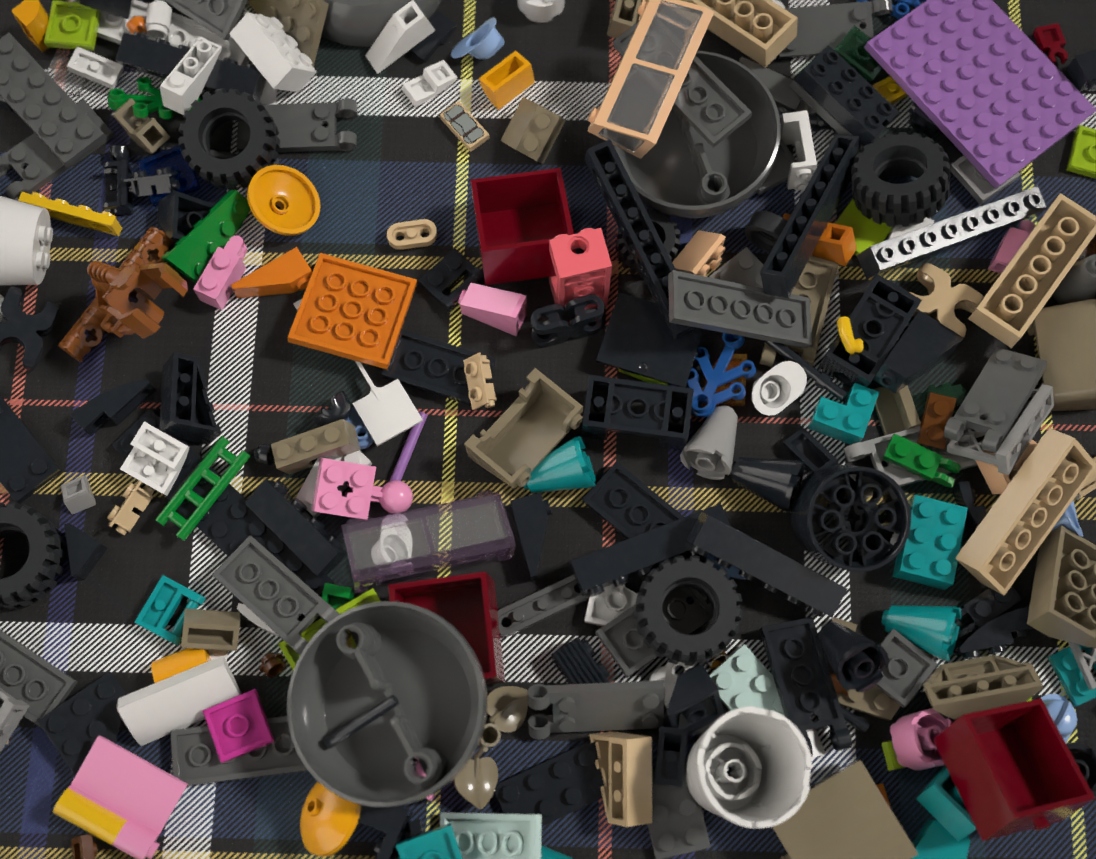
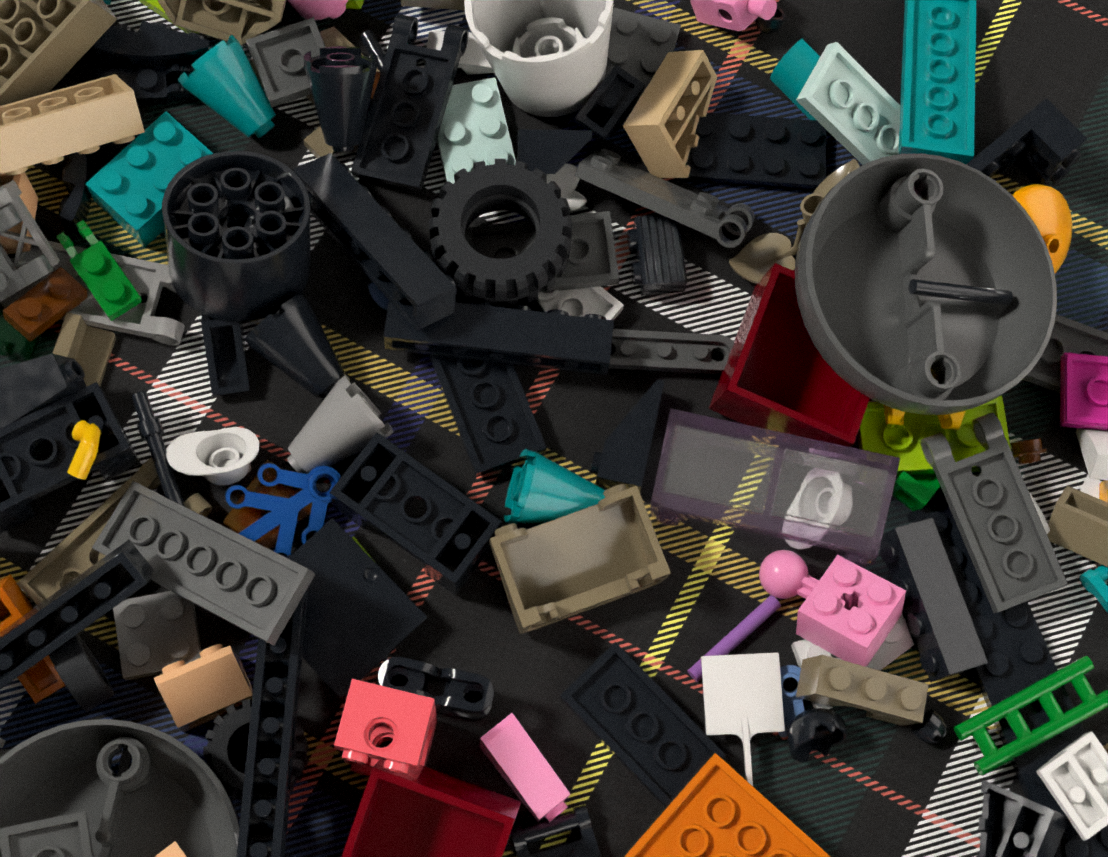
camera: 160 degrees left, 0 degrees up
(477, 371) = (605, 650): tan hinge -> none
(845, 421) = (150, 368): teal brick -> none

